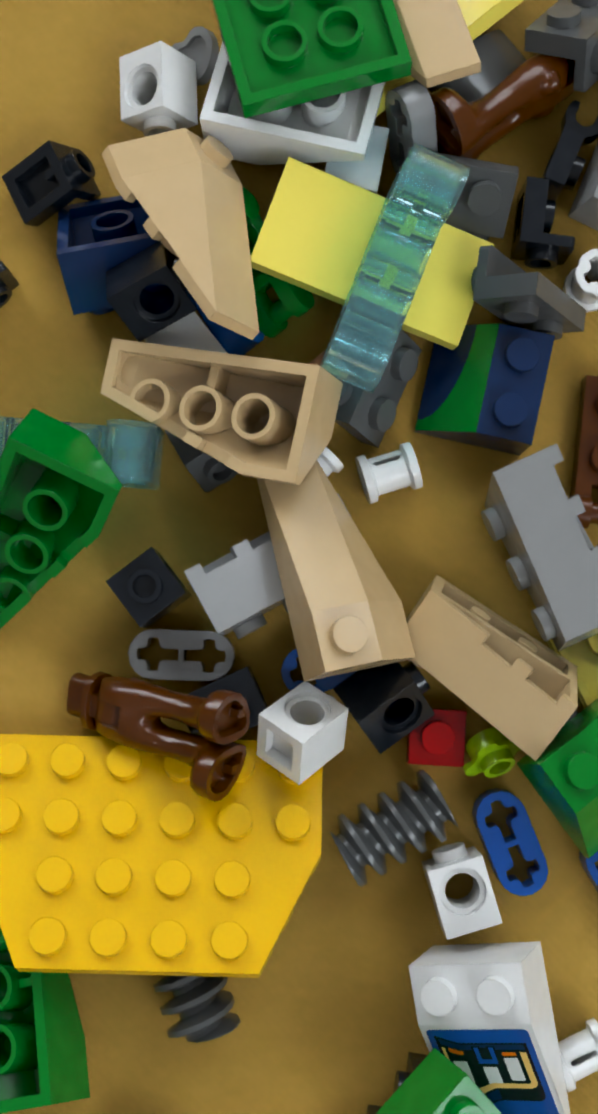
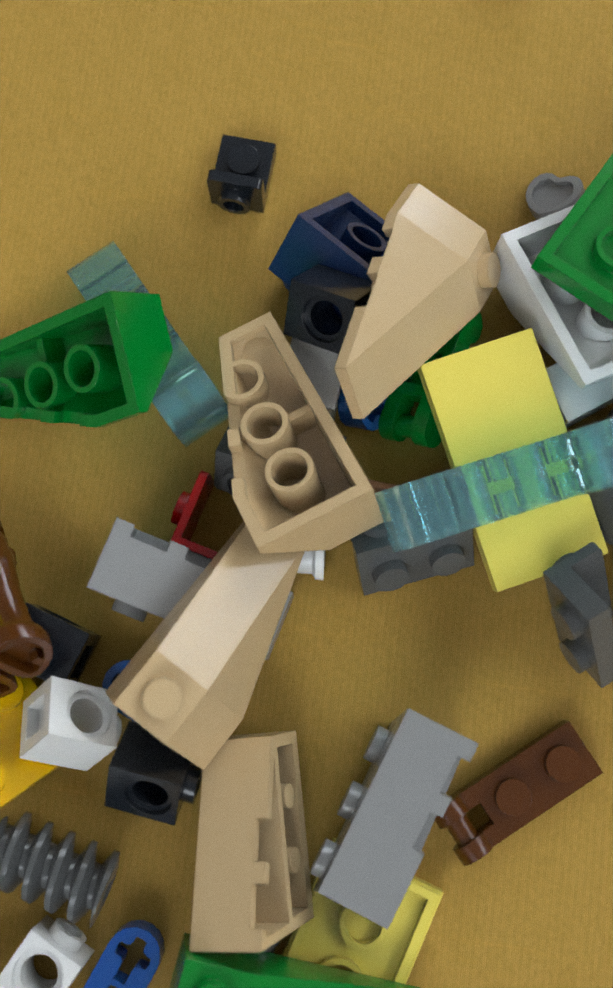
camera: 55 degrees right, 5 degrees down
(50, 181) = (361, 168): black bracket -> none
(148, 588) = (93, 501): black brick -> none
(158, 89) = (502, 188): white brick -> none
(183, 641) = (54, 582): light grey beam -> none
(212, 528) = (188, 512): none -> red bracket
(389, 472) = (348, 620): white bush -> none
(439, 739) = (159, 846): red plate -> none
(486, 388) = (486, 645): dark blue slope -> none
(490, 754) = (174, 901): lime plate -> none

